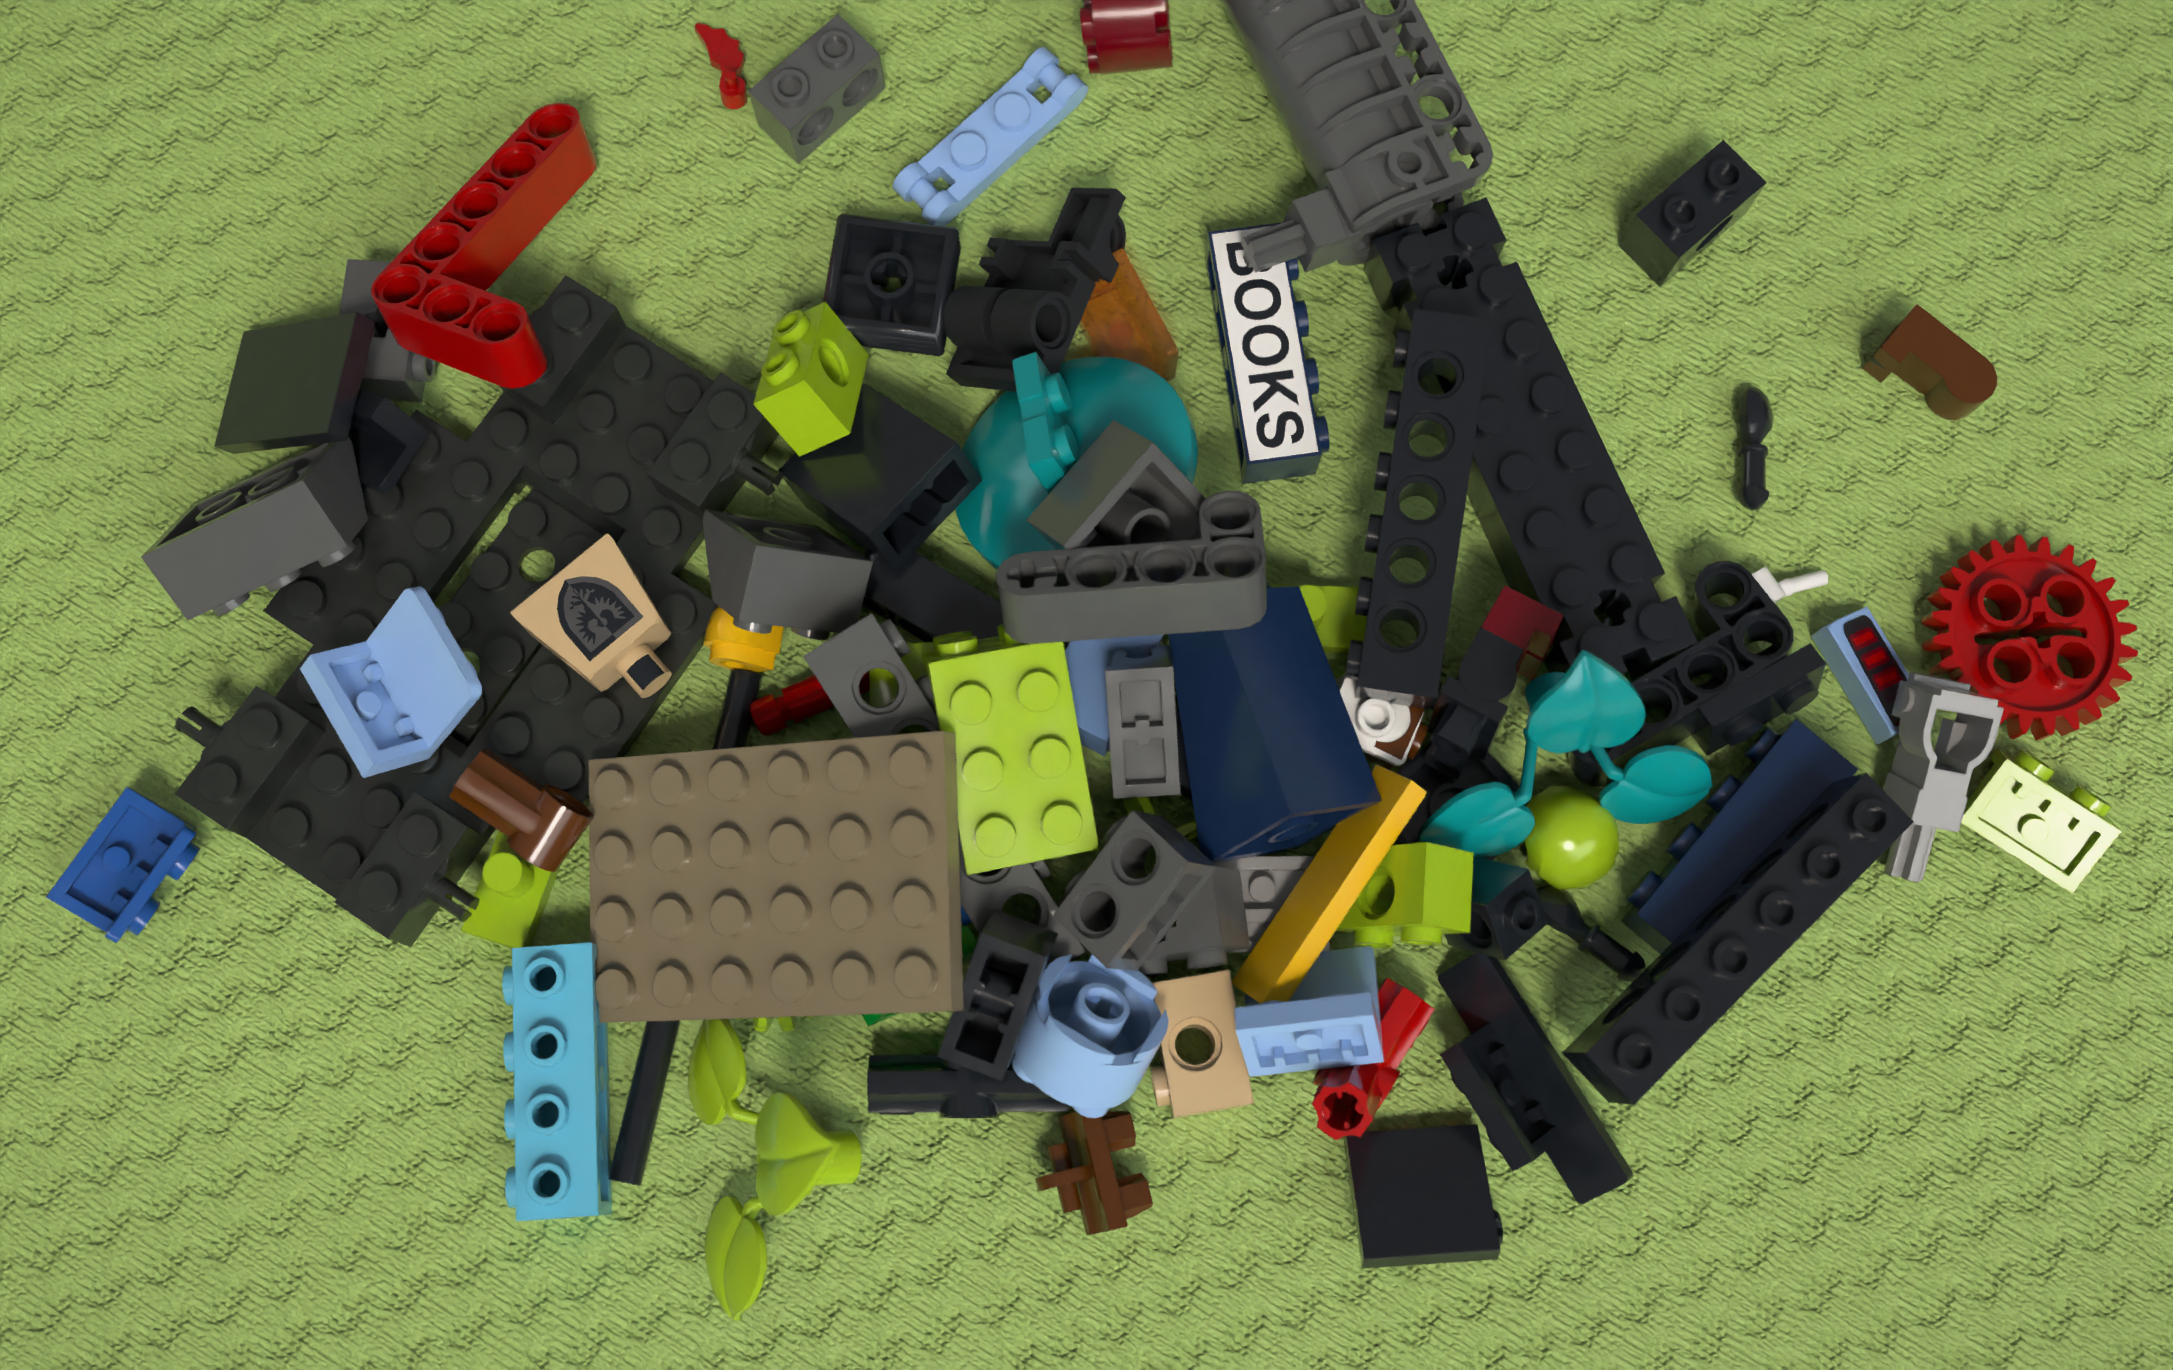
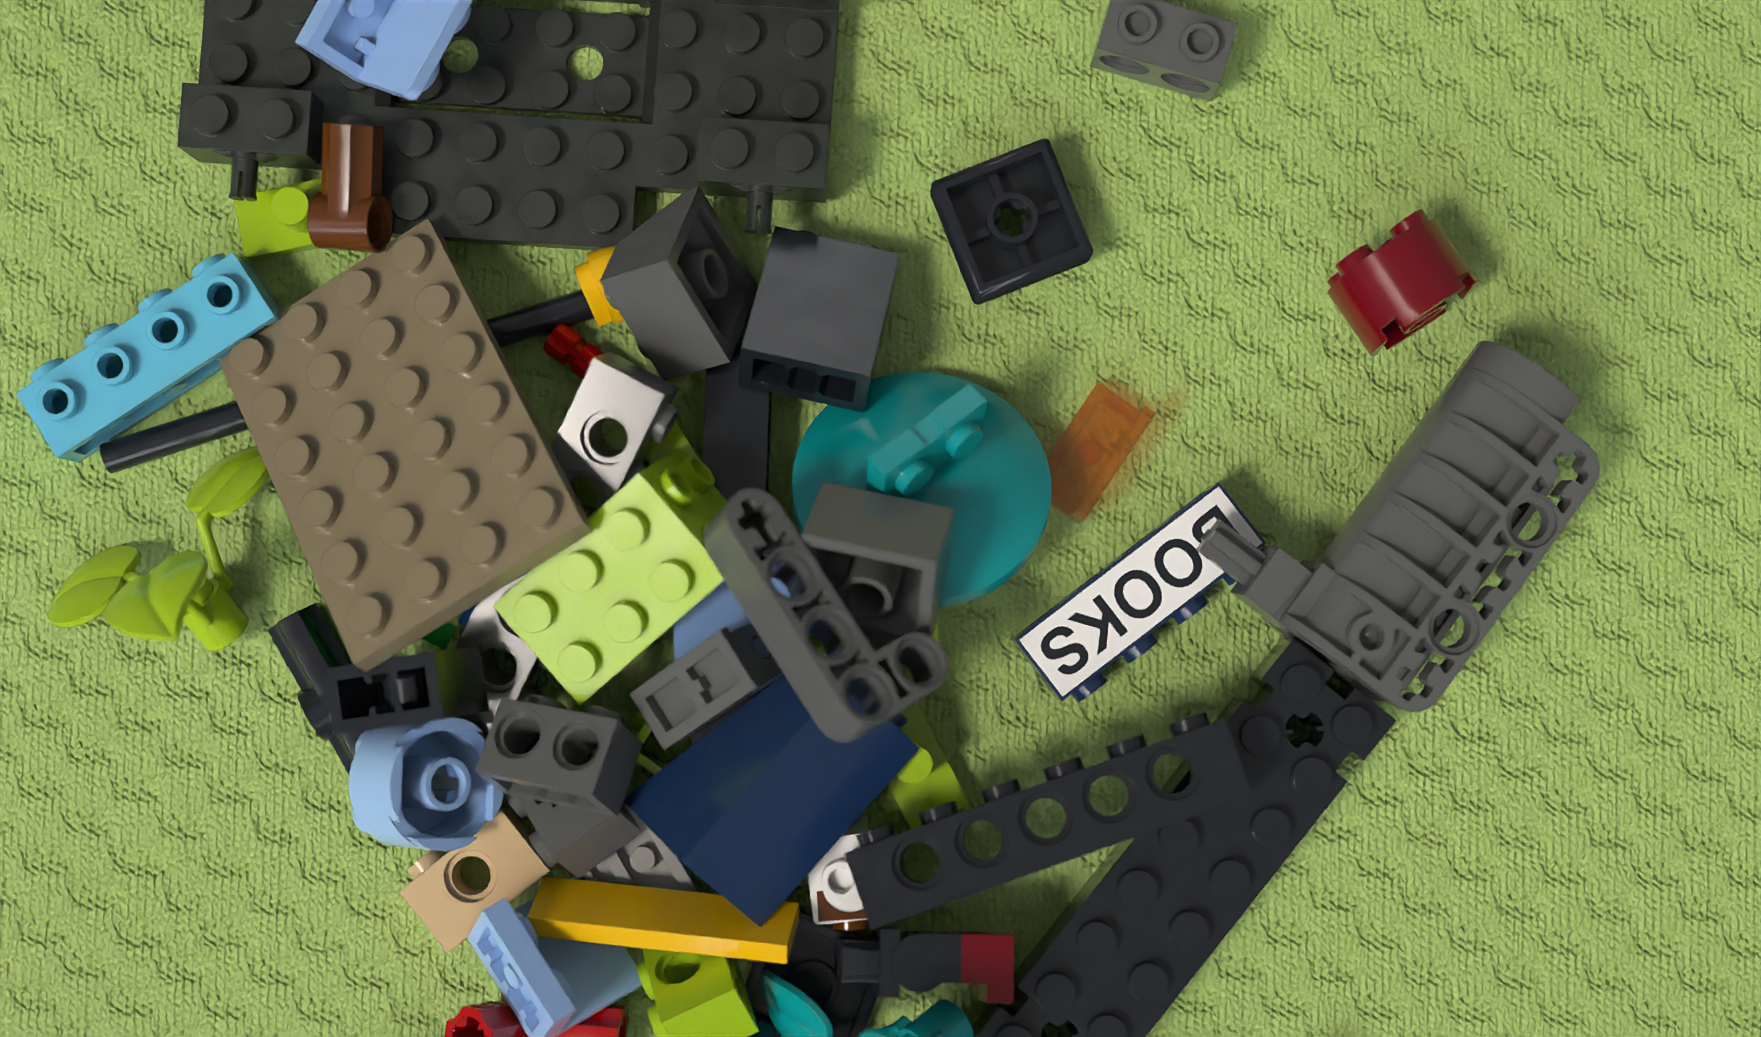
camera: 60 degrees right, 10 degrees up
(600, 621) = (547, 157): tan torso -> none
(811, 379) = (872, 207): lime brick -> none
(991, 139) = (1210, 228): light blue plate -> none
(1034, 292) = (1065, 358): black plate -> none
(1087, 1175) = (308, 866): reddish brown hips -> none
(1691, 213) = (1500, 916): black brick -> none

